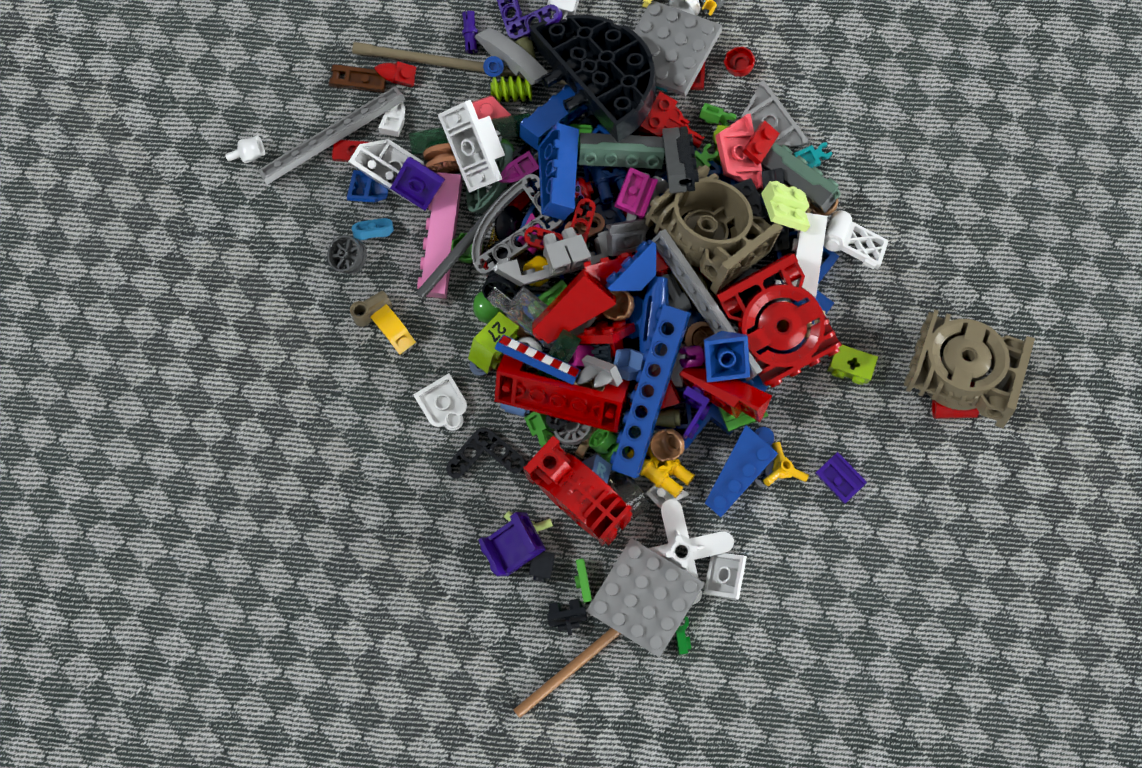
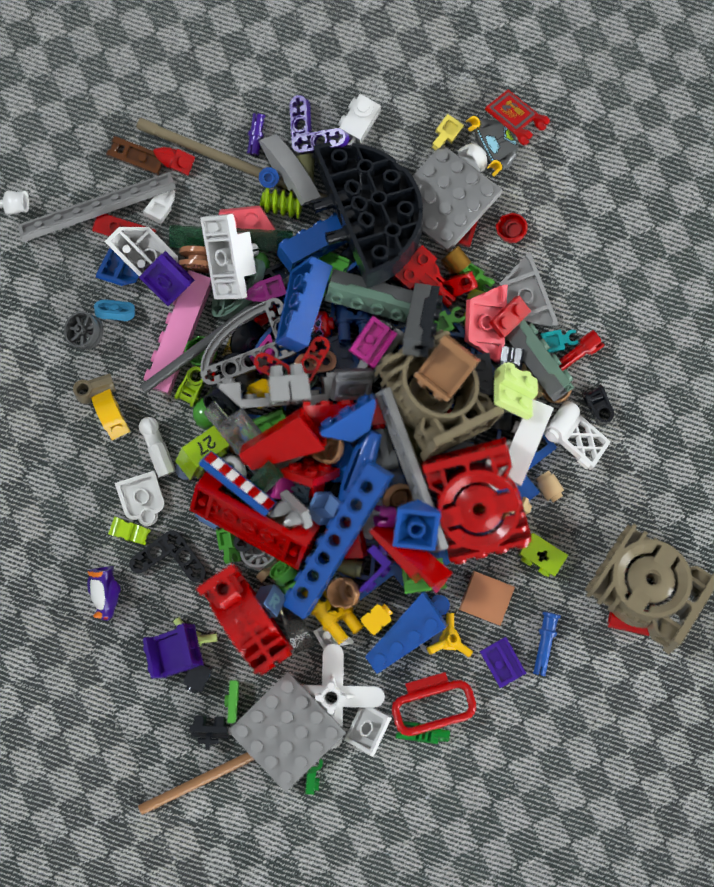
camera: 15 degrees right, 5 degrees up
(427, 503) = (103, 591): none -> dark purple animal
(440, 438) = (129, 531): none -> lime leg
(446, 351) = (156, 447): none -> white piece
(466, 287) = (190, 387): none -> lime piece
(694, 103) = (455, 260): none -> pearl gold piece
(705, 122) = (460, 283): none -> red leg
(706, 463) = (378, 617): none -> yellow brick
(716, 198) = (446, 368): none -> medium nougat panel
(774, 519) = (428, 687): none -> red bar
(779, 566) = (427, 737): none -> green hinge
(808, 419) = (486, 598): none -> nougat slope
(841, 296) = (549, 486): none -> tan brick
(842, 154) = (588, 345): none -> red piece
(865, 205) = (598, 404): none -> black piece
(877, 439) = (547, 633): none -> blue pin

